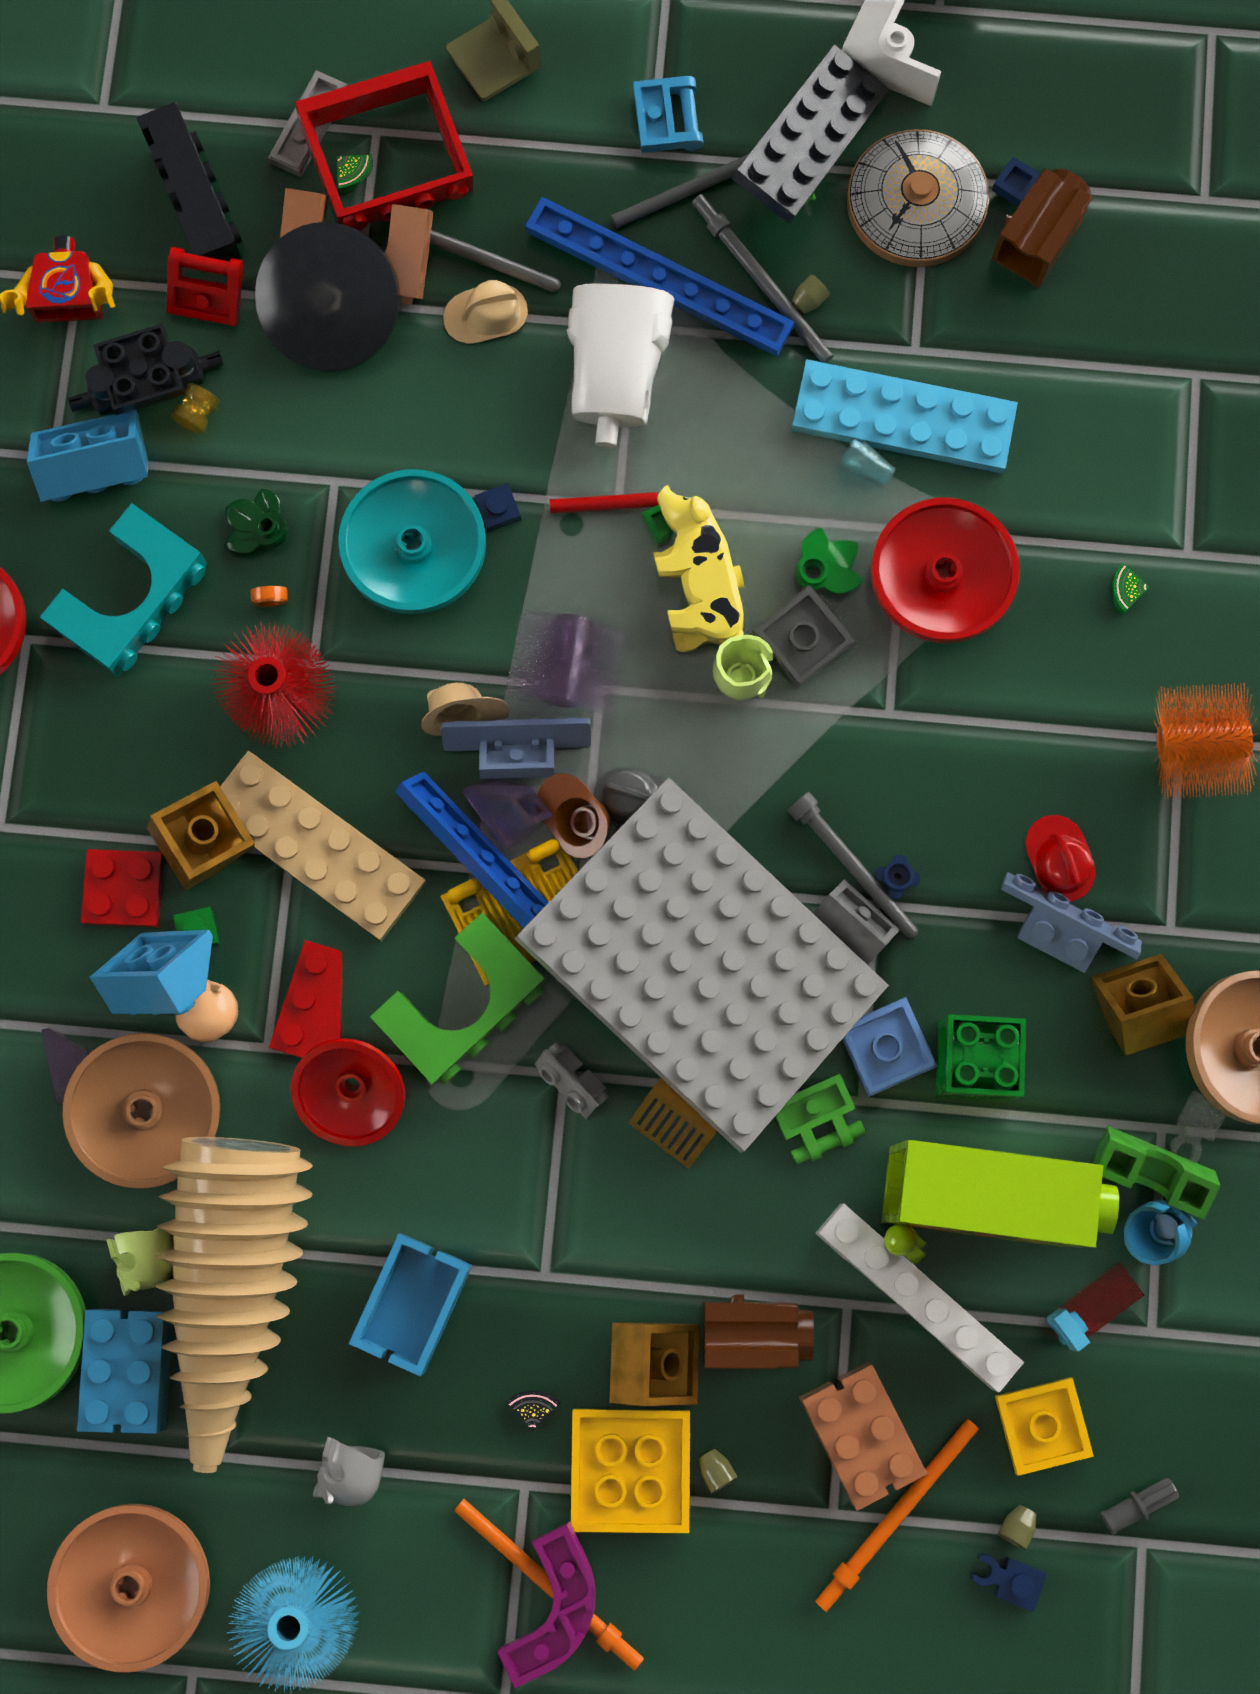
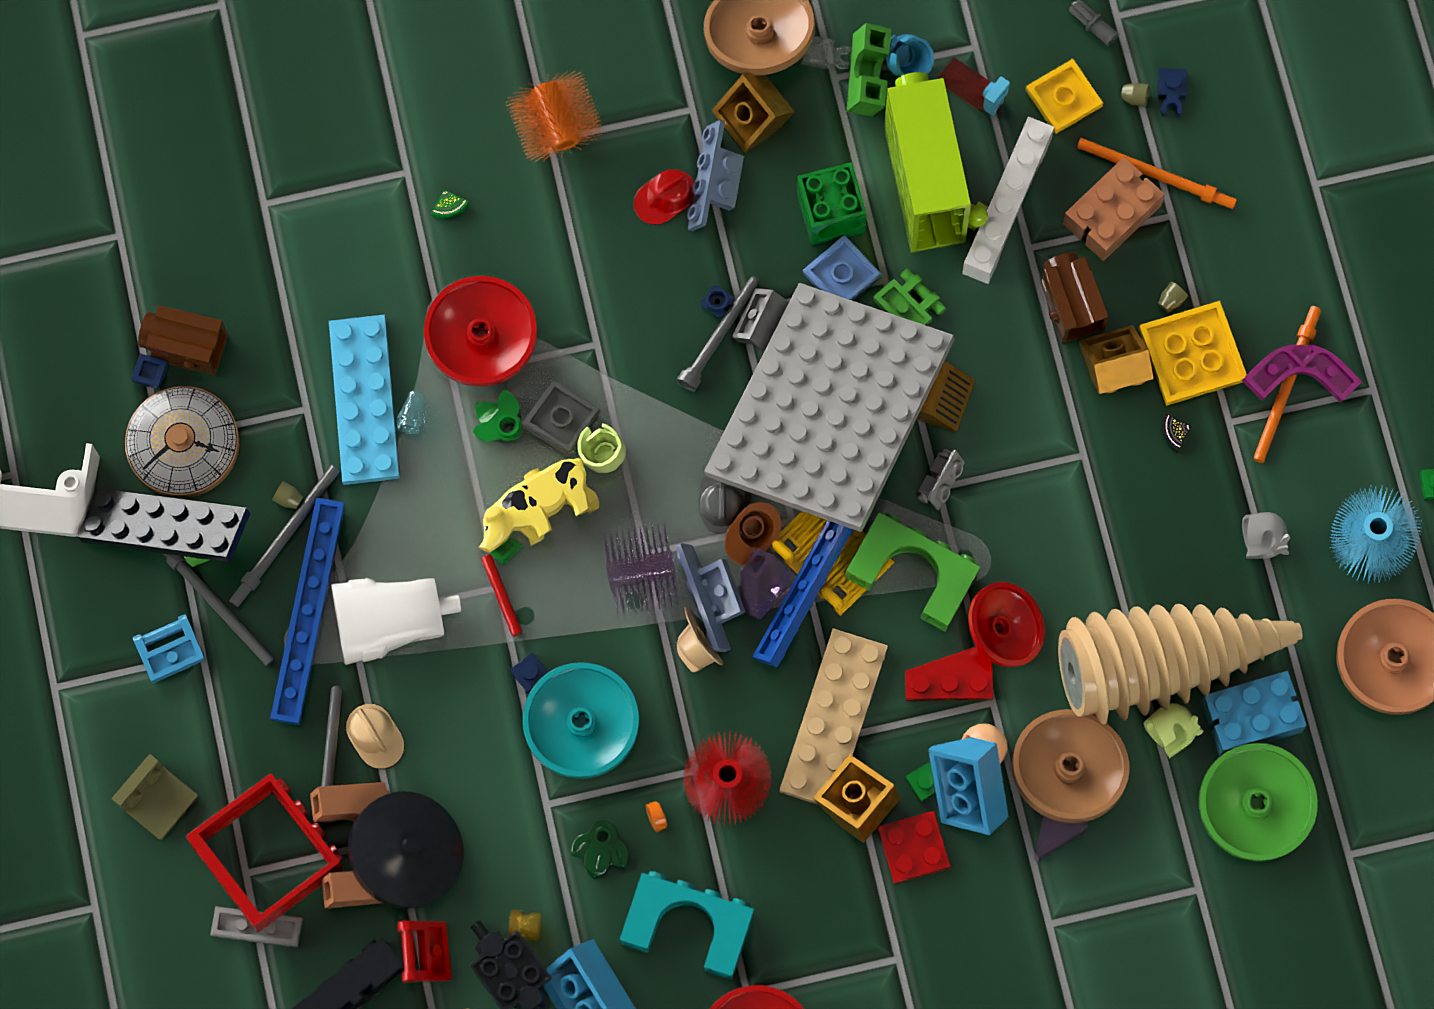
camera: 105 degrees left, 5 degrees down
(352, 171) = (287, 877): green tile -> none
(410, 1304) = (1136, 531): dark azure piece -> none

